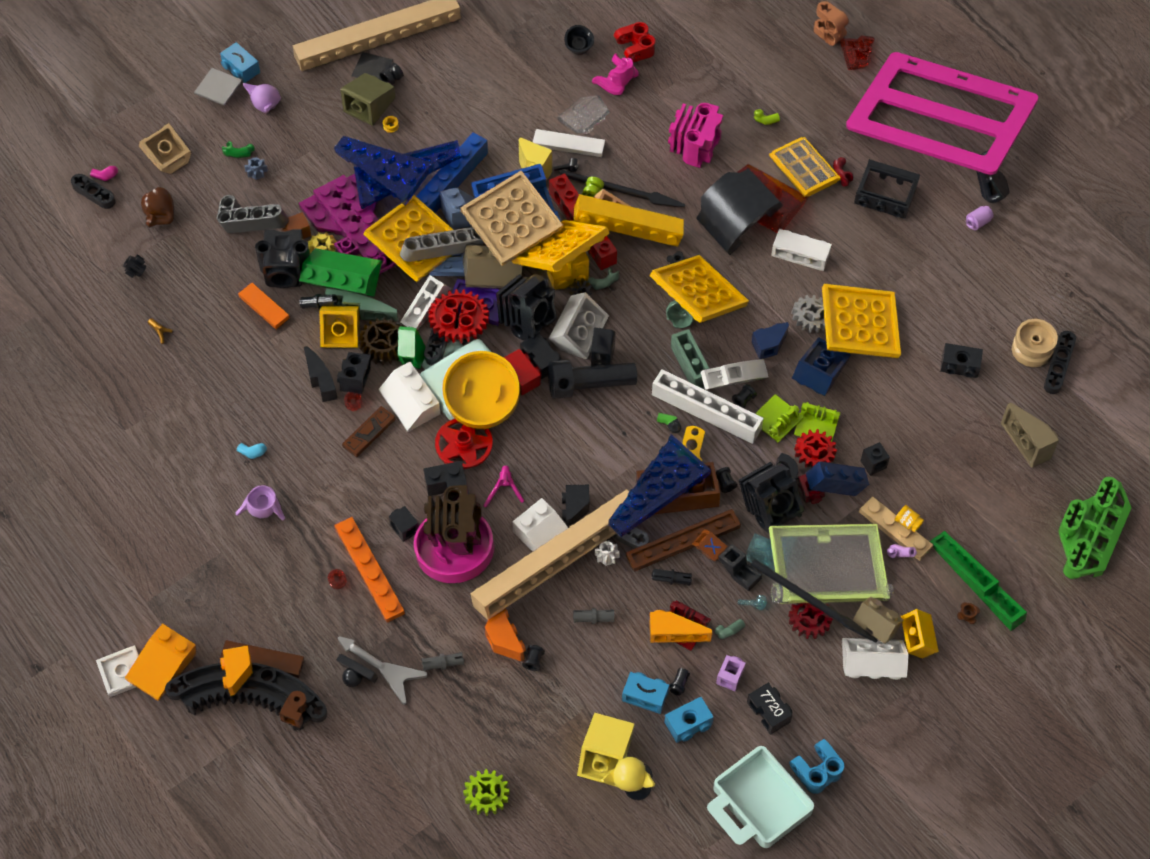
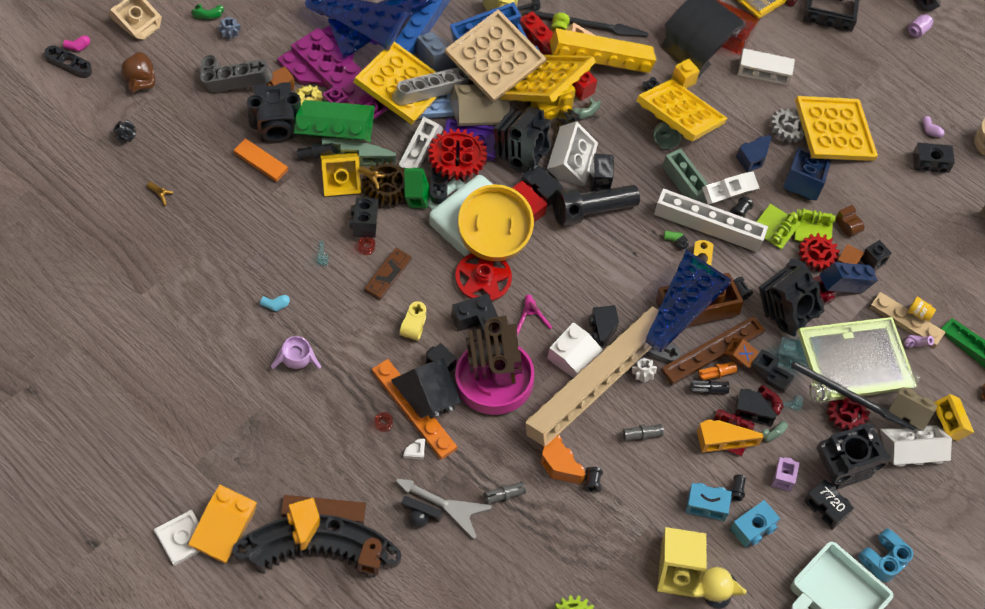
camera: 15 degrees left, 0 degrees up
(306, 409) = (322, 258): none -> clear light blue hand
(320, 375) = (330, 223): black slope -> none
(362, 610) = (415, 450): none -> white tile
(367, 330) = (372, 175): none -> pearl gold bar
(384, 482) = (413, 322): none -> light yellow piece
(384, 551) = (428, 389): none -> black slope
(410, 397) = (423, 236): white slope -> none
(683, 562) = (718, 371): none -> orange axle
(712, 603) = (754, 408): none -> black slope
(713, 250) = (685, 73): none -> yellow brick
(729, 590) = (777, 404): none -> dark red piece
(807, 647) = (853, 455): none -> black piece
(847, 456) = (850, 255): none -> dark orange brick
(855, 419) = (849, 221): none -> reddish brown leg
(968, 330) = (931, 129): none -> lavender arm

